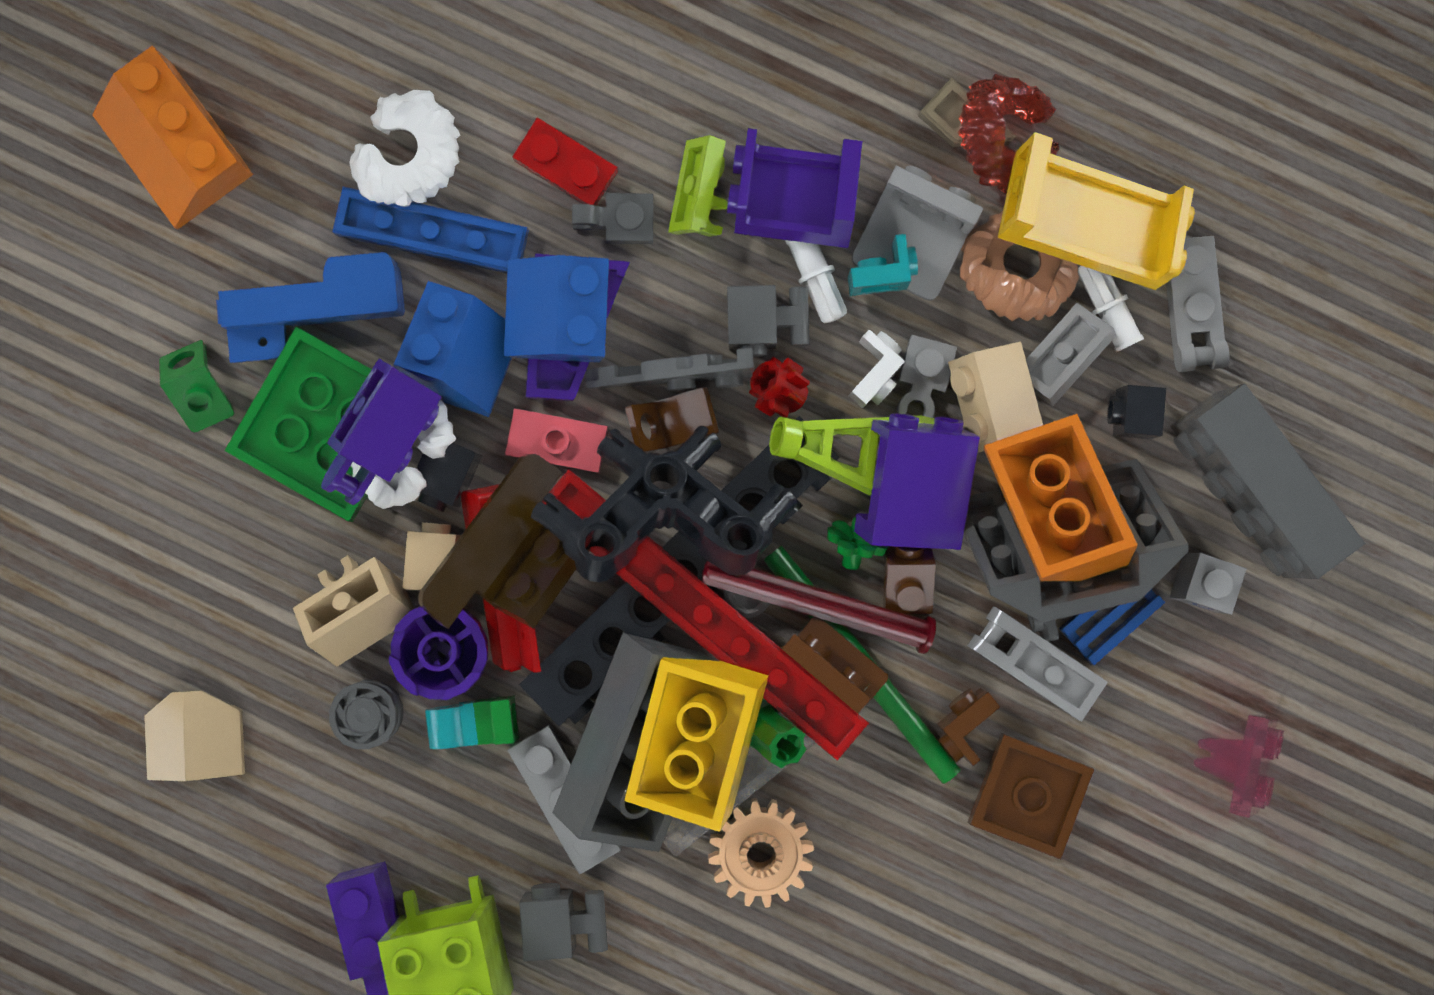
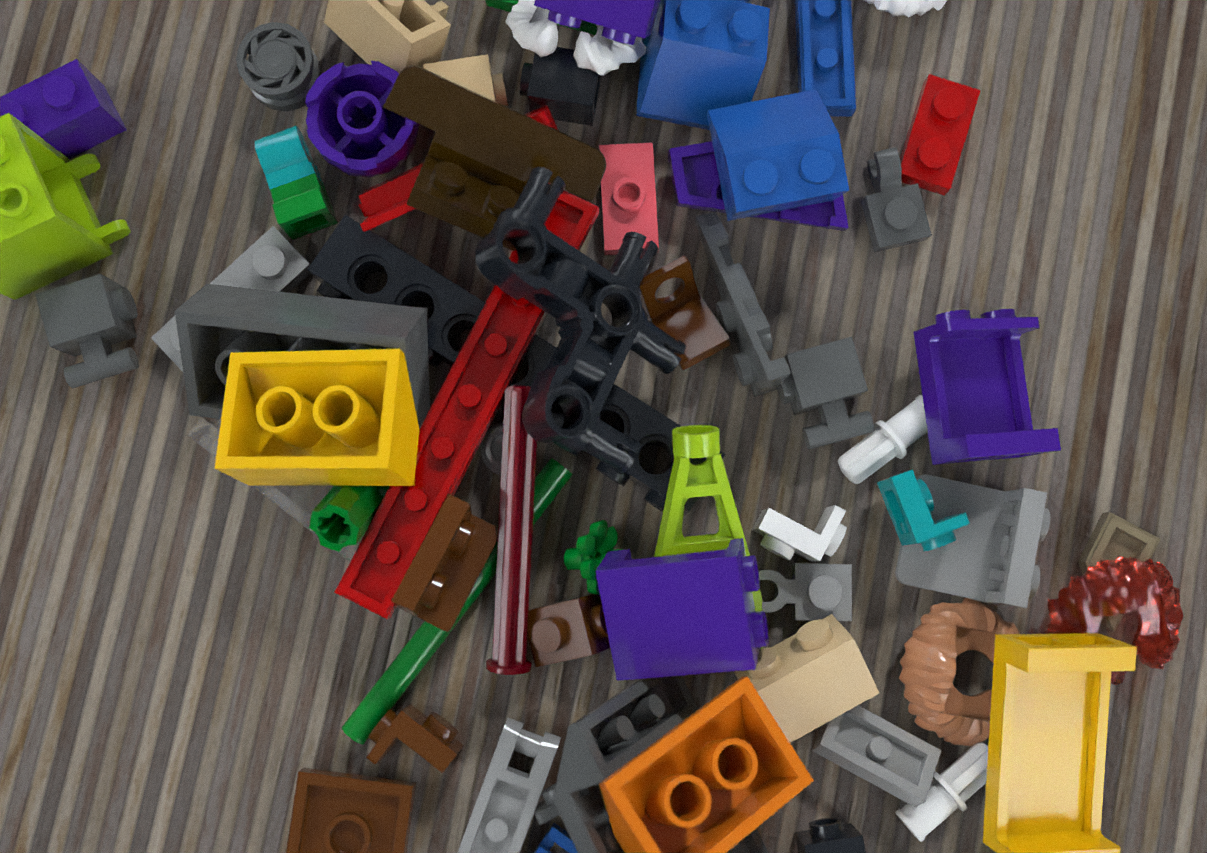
camera: 75 degrees right, 5 degrees down
(694, 196) = (970, 280): lime plate -> none
(765, 877) = (188, 530): light nougat gear -> none
(779, 387) = (752, 426): red gear -> none

